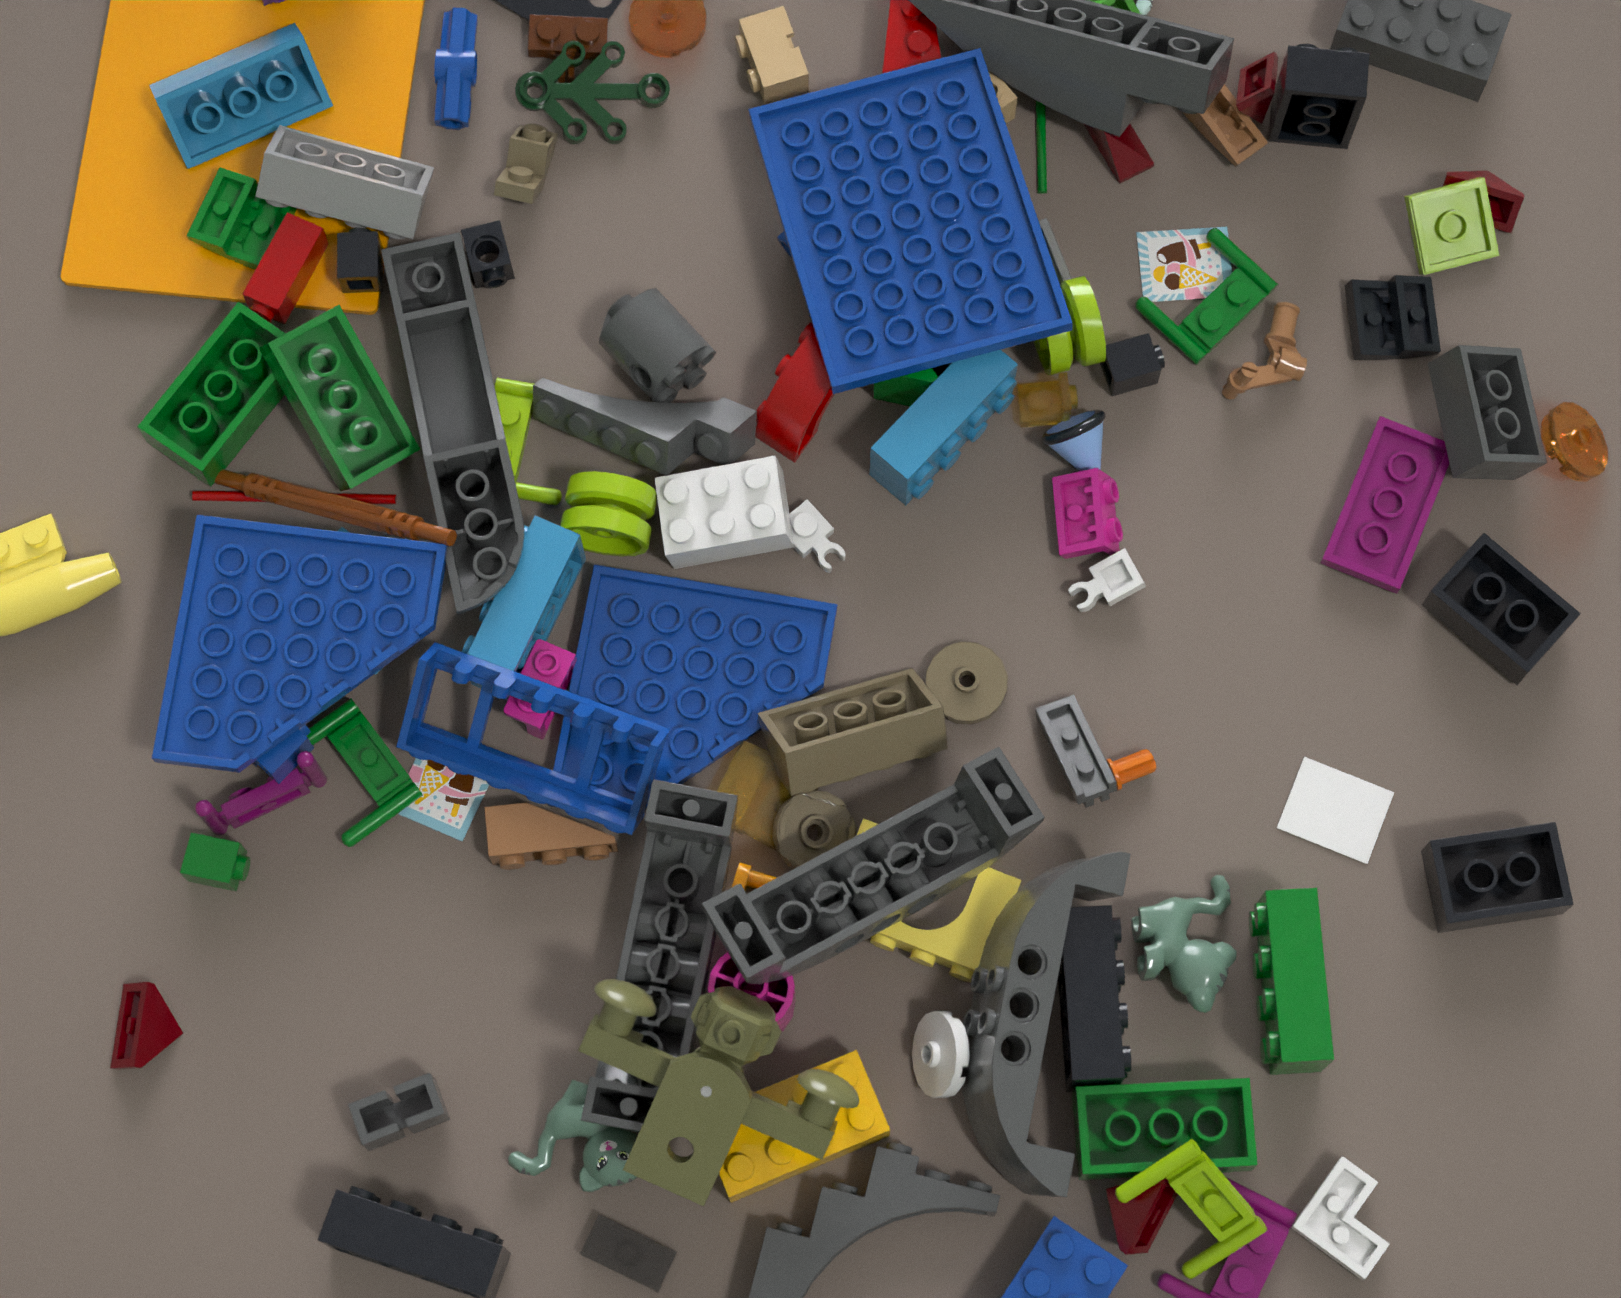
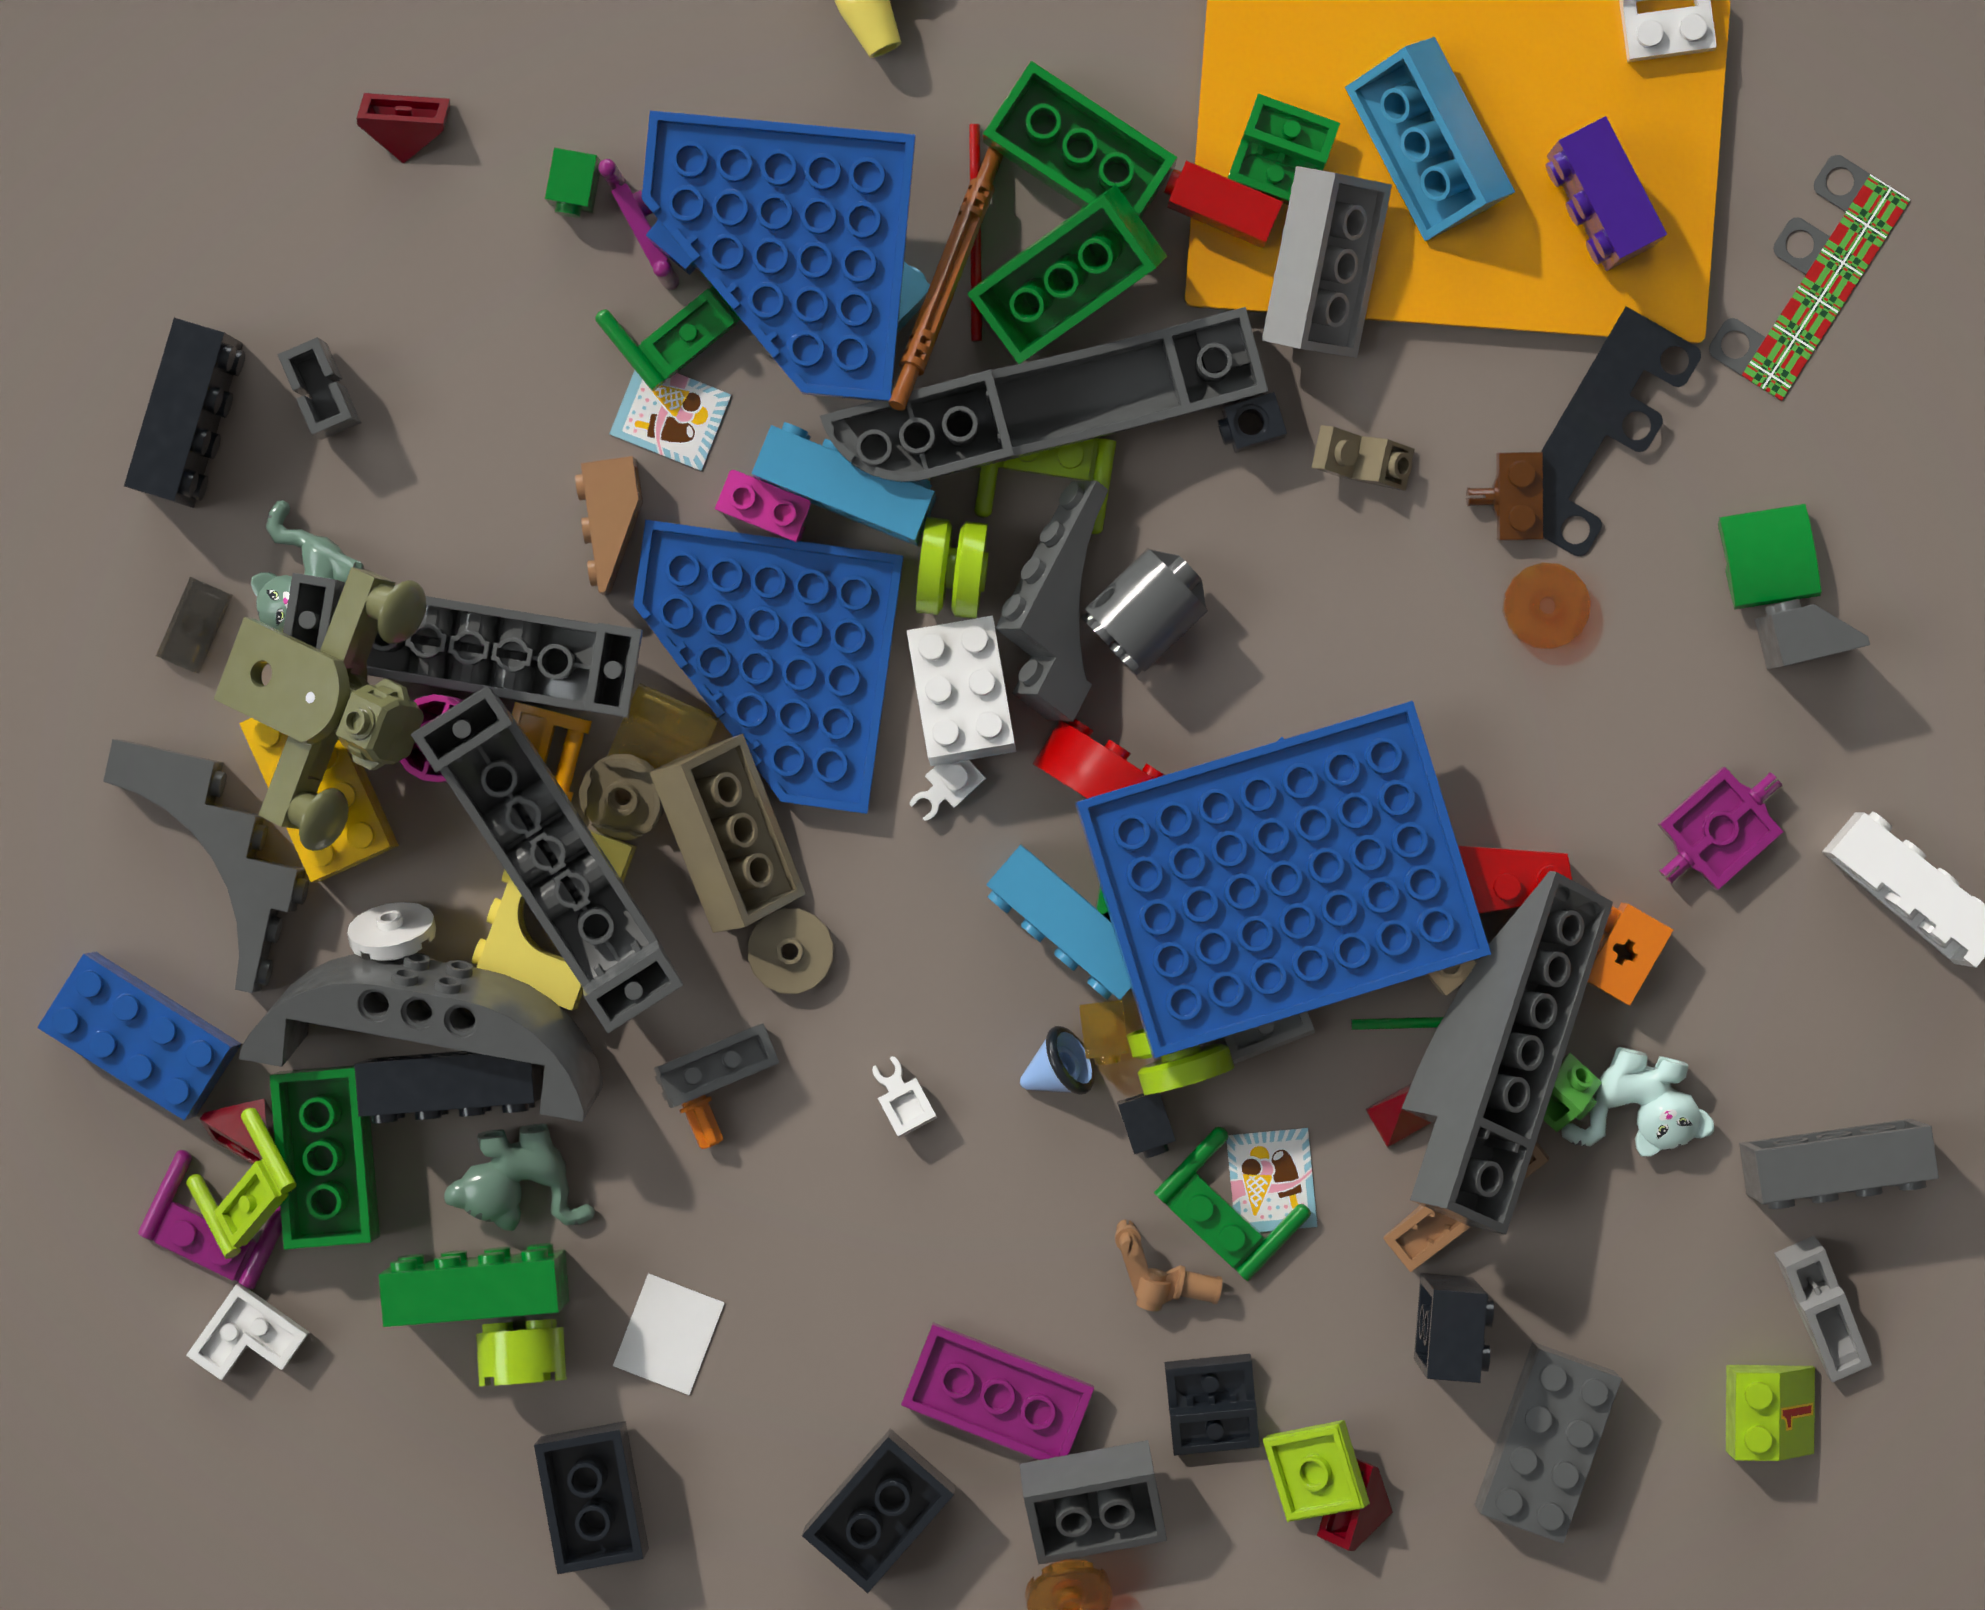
camera: 85 degrees right, 15 degrees up
(359, 261) = (1236, 284): black brick -> none
(456, 69) = (1475, 374): blue piece -> none
(512, 773) = (666, 489): blue window -> none
(585, 91) = (1450, 517): dark green plant -> none
(774, 62) = (1512, 717): tan brick -> none
(1086, 513) = (976, 1075): dark pink bracket -> none
(1257, 87) = (1476, 1260): dark red slope -> none
(1359, 940) = (521, 1354): none -> lime brick

